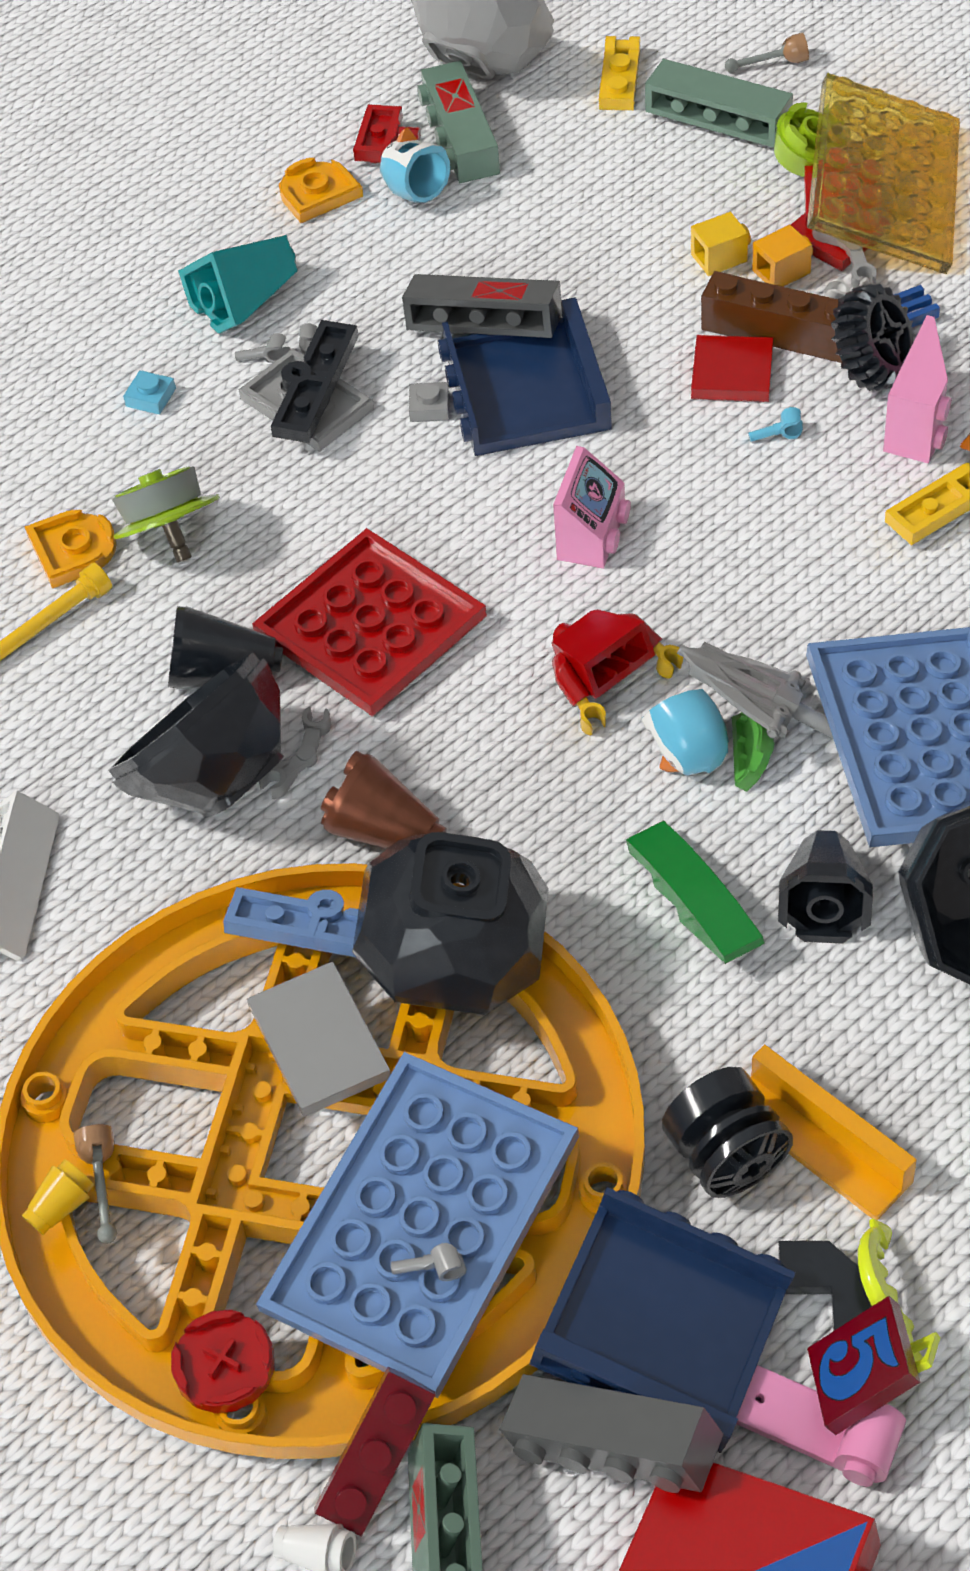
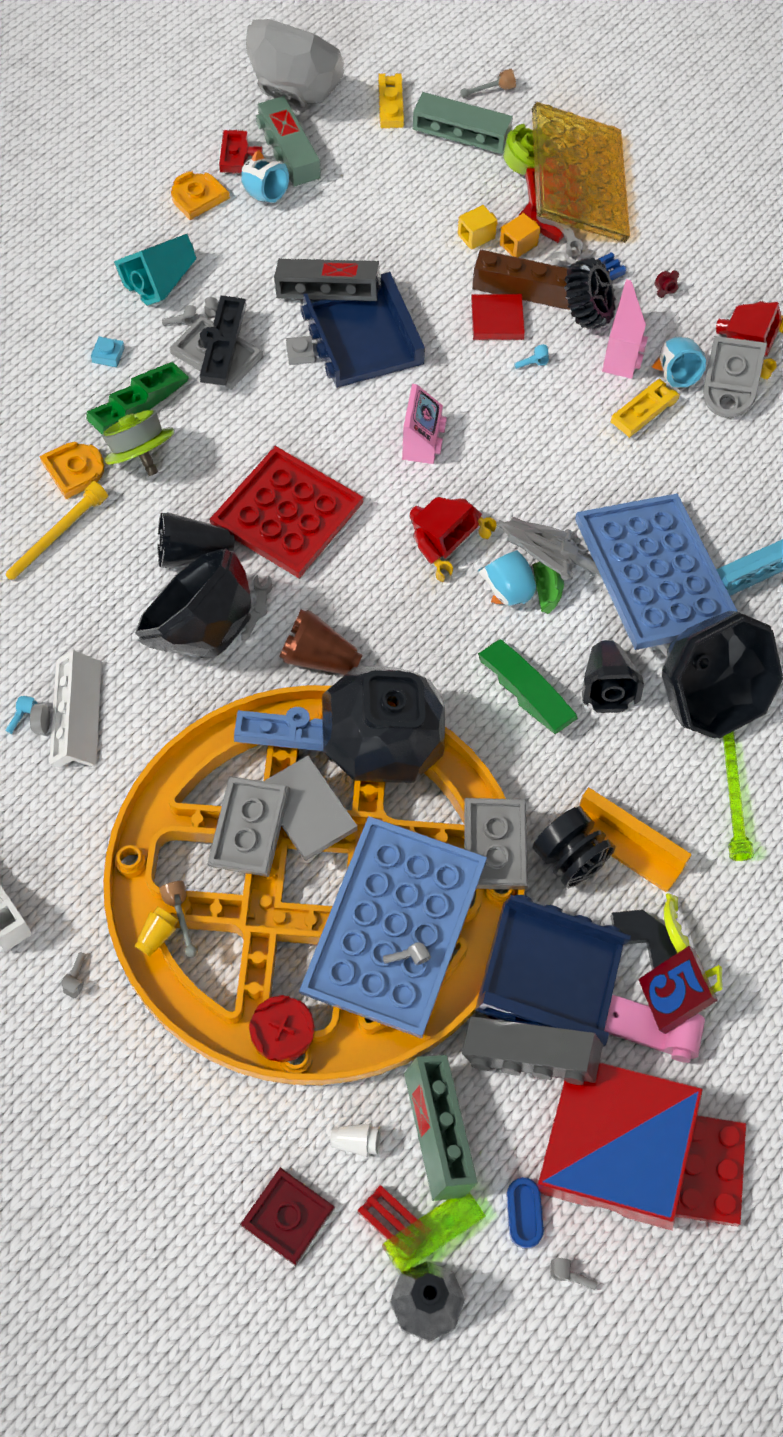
camera: 15 degrees left, 10 degrees up
(191, 444) = (142, 395): none -> green slope
(225, 1057) = (248, 826): none -> light grey tile
(374, 1451) = (387, 1076): dark red plate -> none
(611, 1103) = (500, 833): none -> light grey tile

